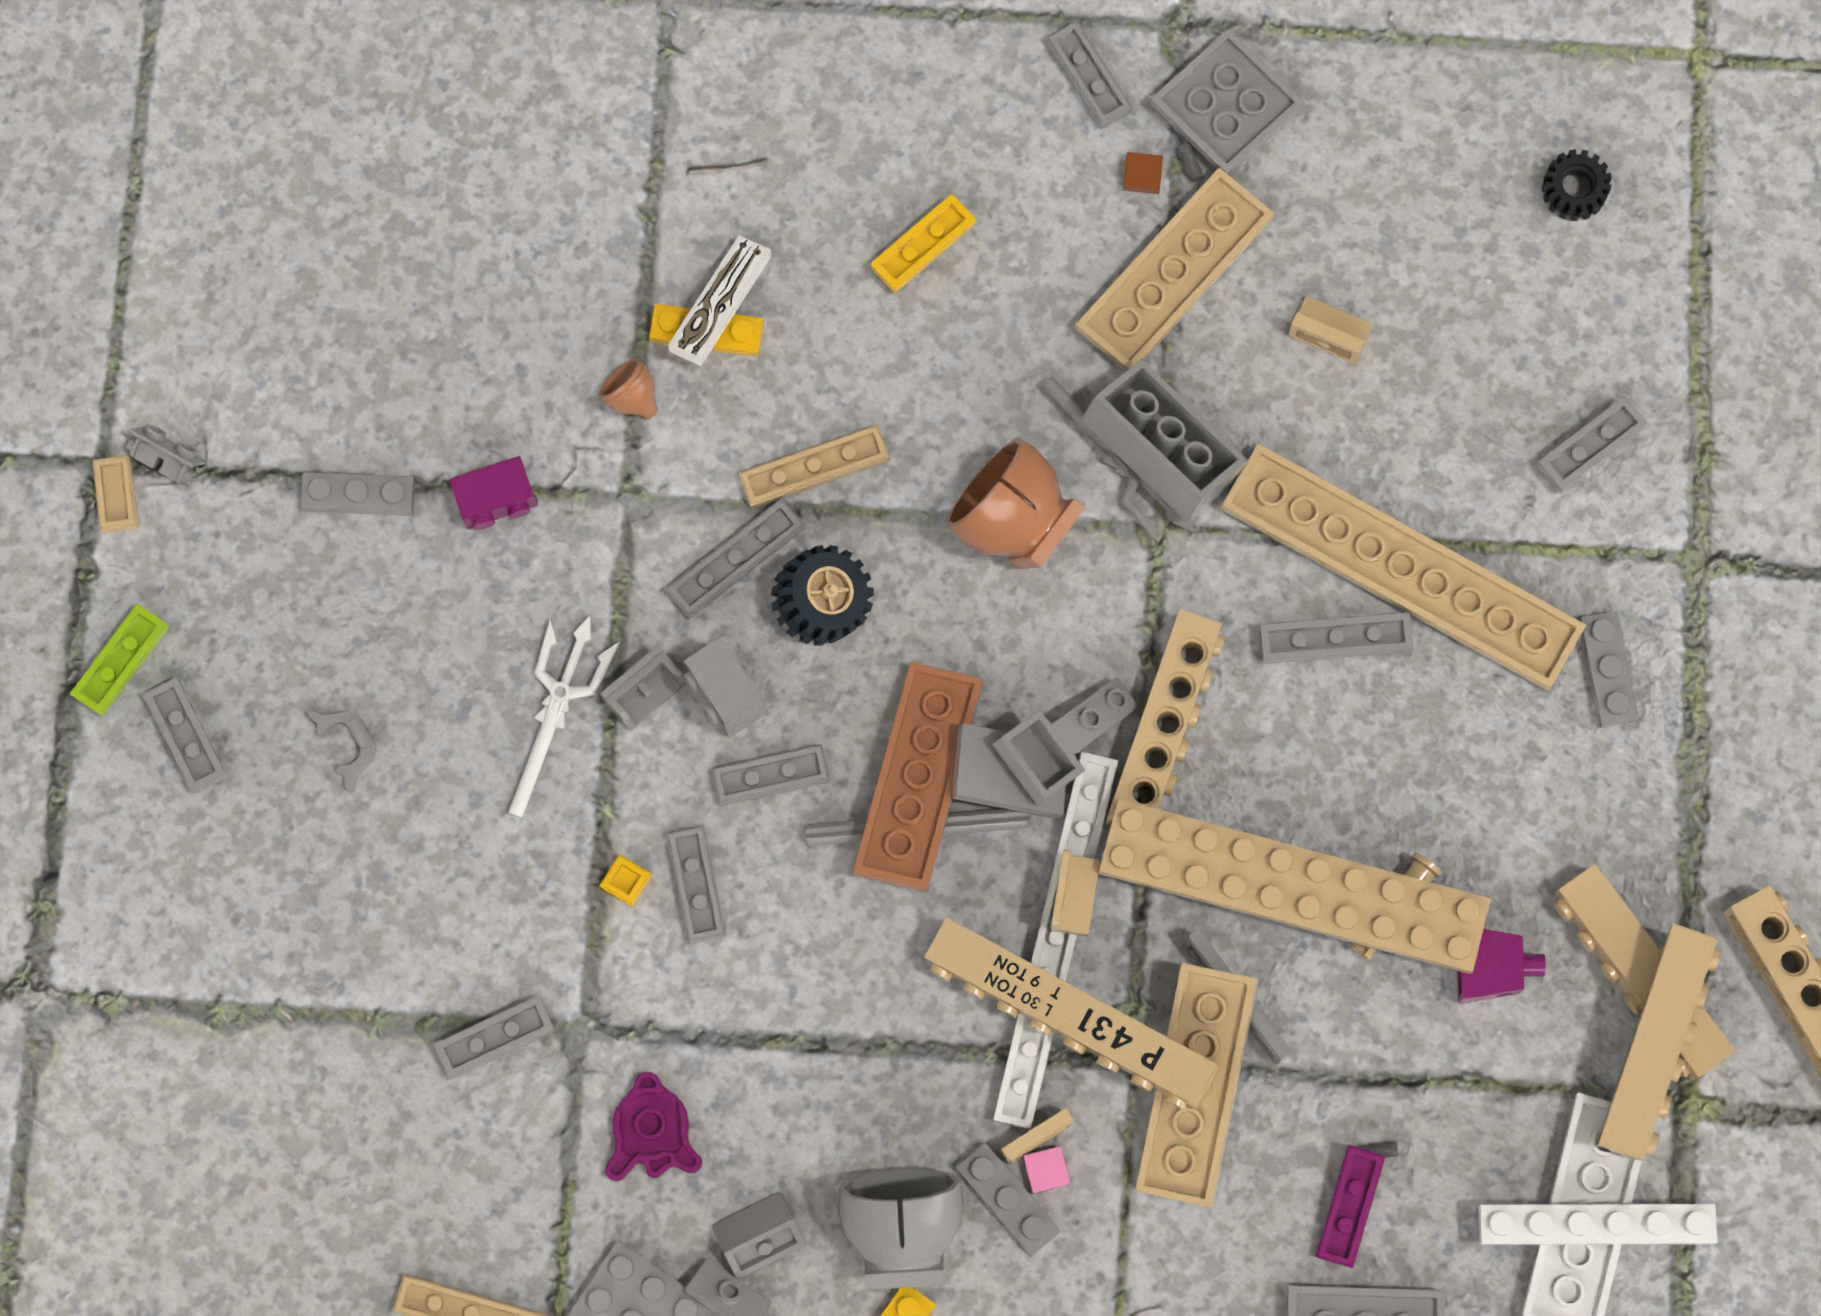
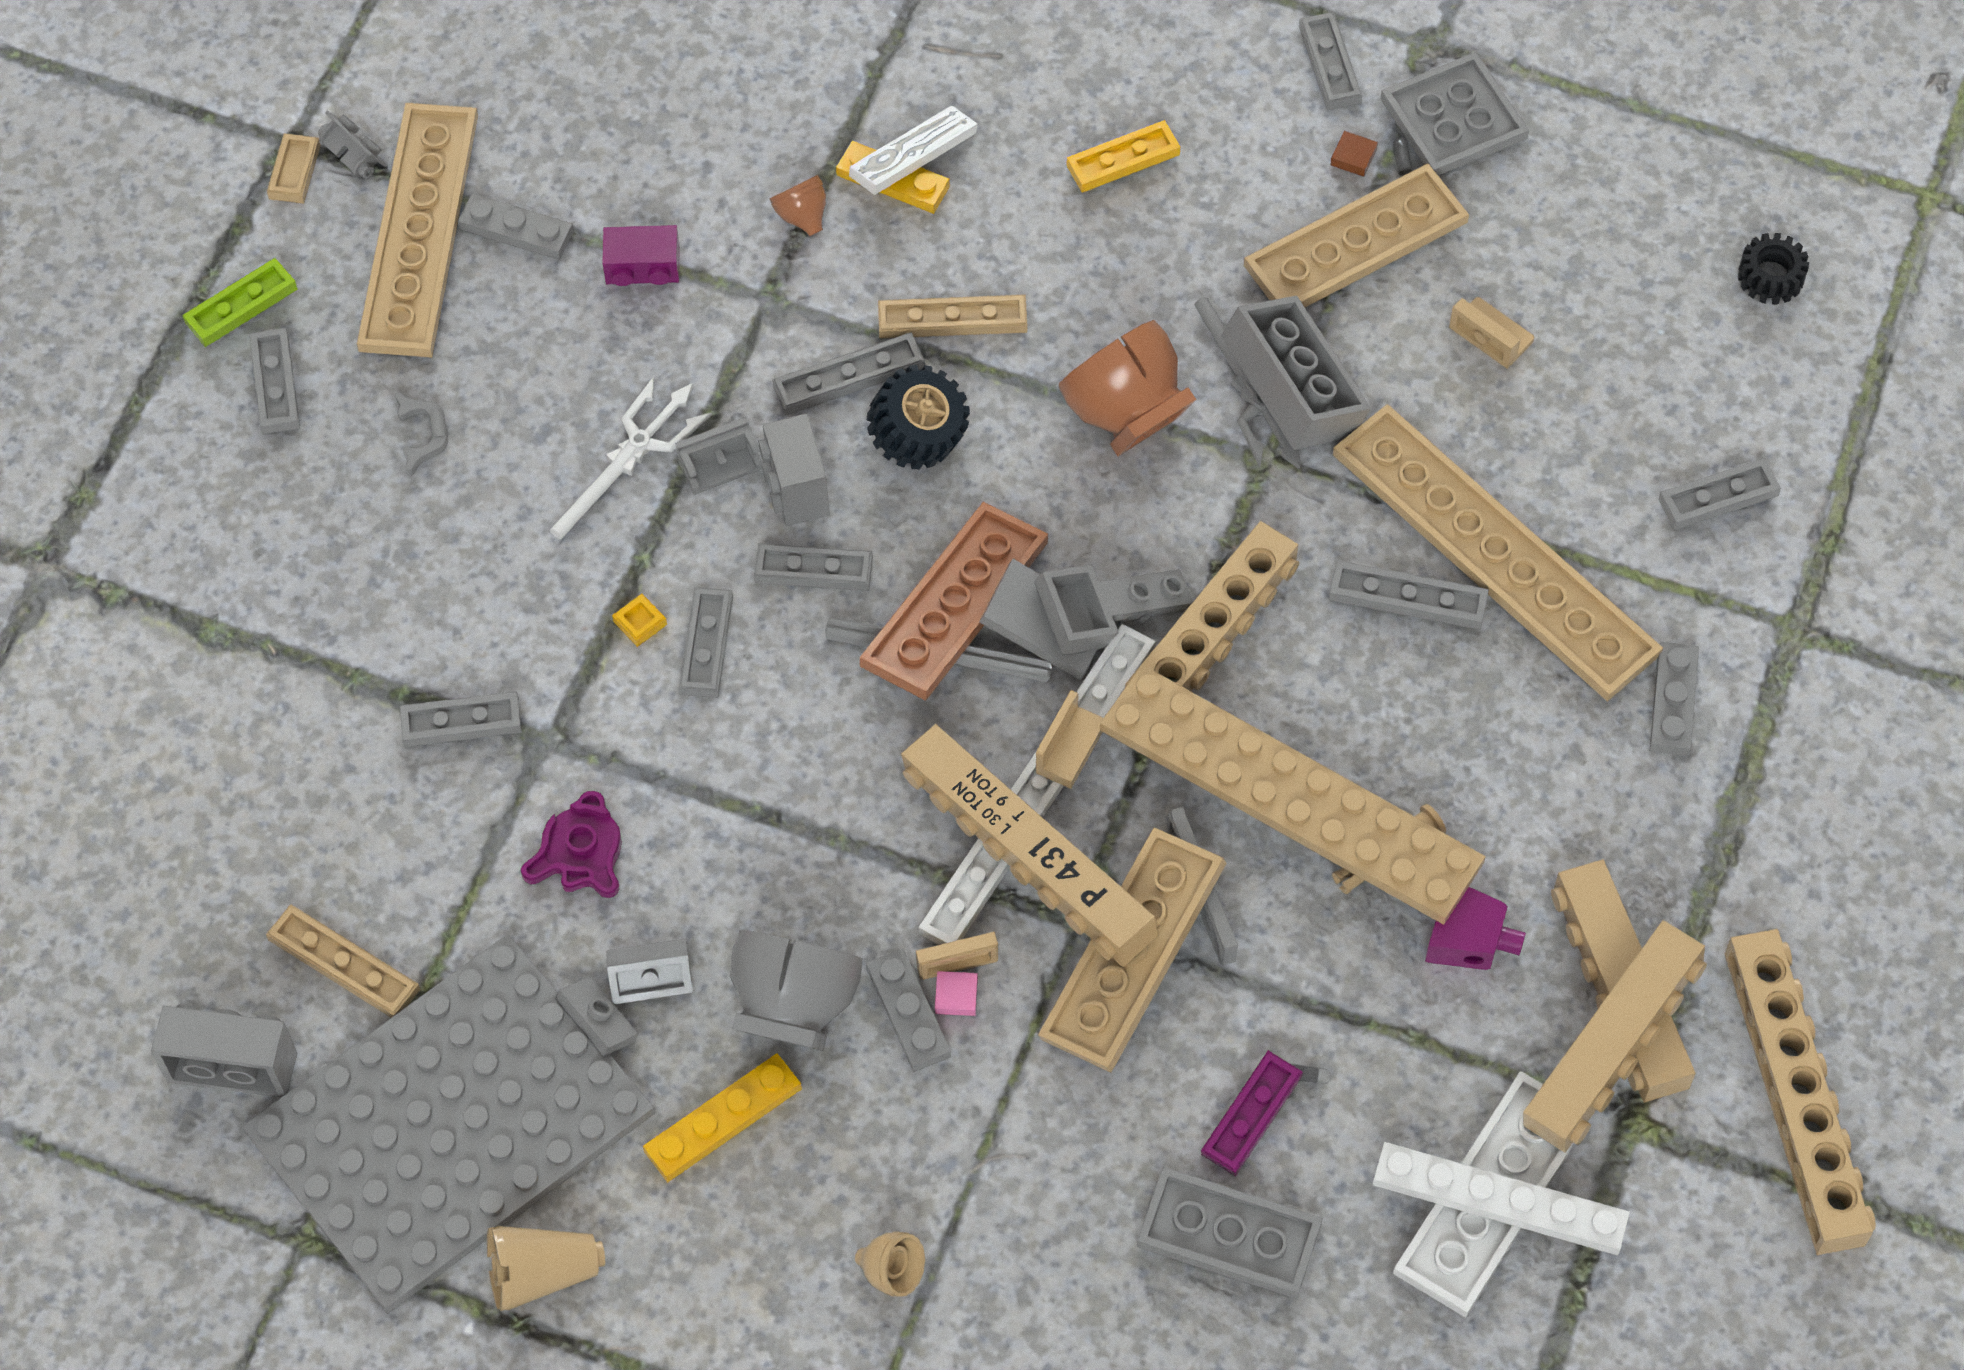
camera: 15 degrees right, 15 degrees down
(264, 528) = (417, 230): none -> tan plate

